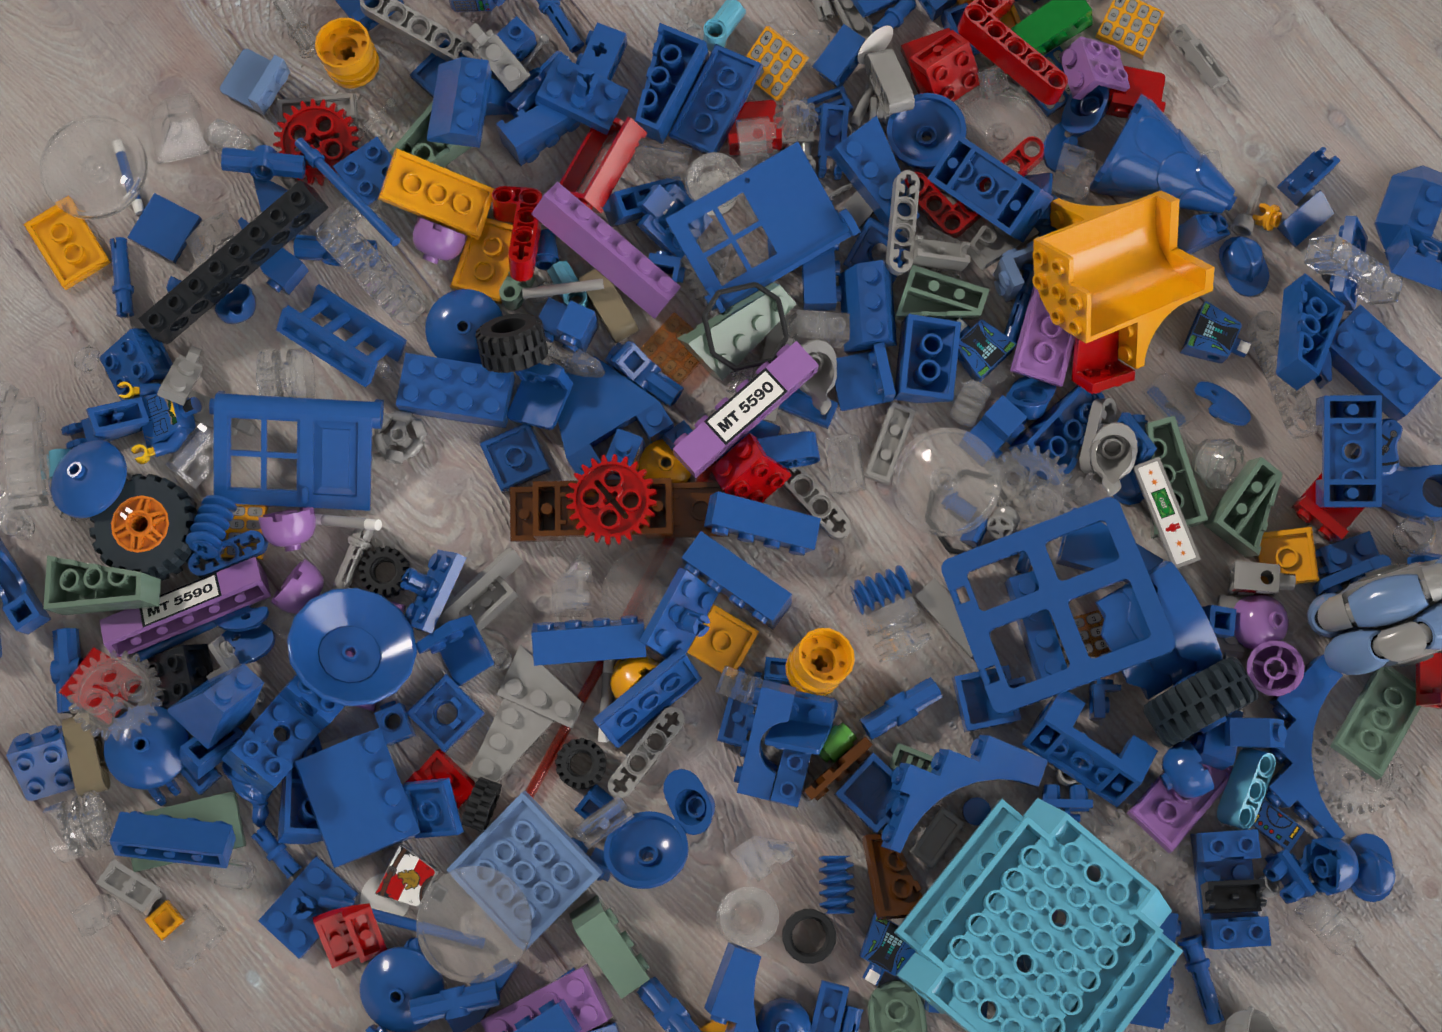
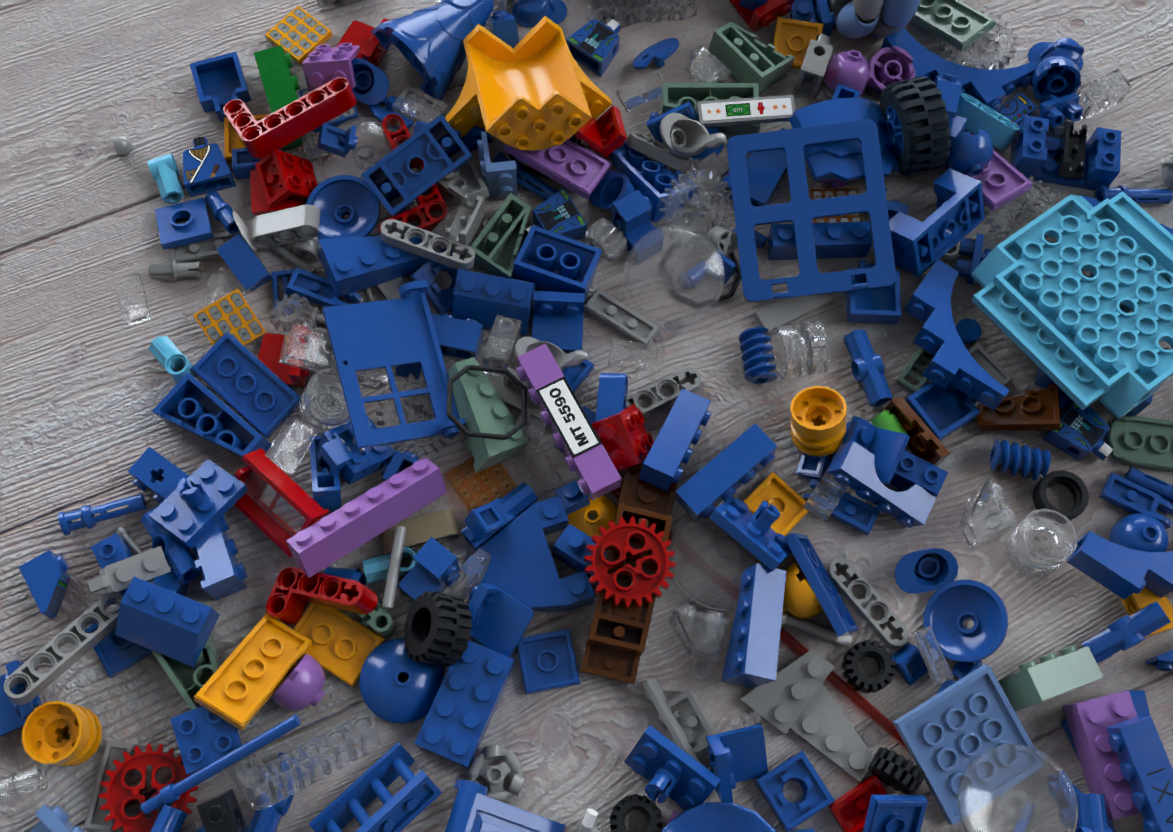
camera: 80 degrees left, 10 degrees down
(1003, 99) = (337, 140): none -> blue bracket

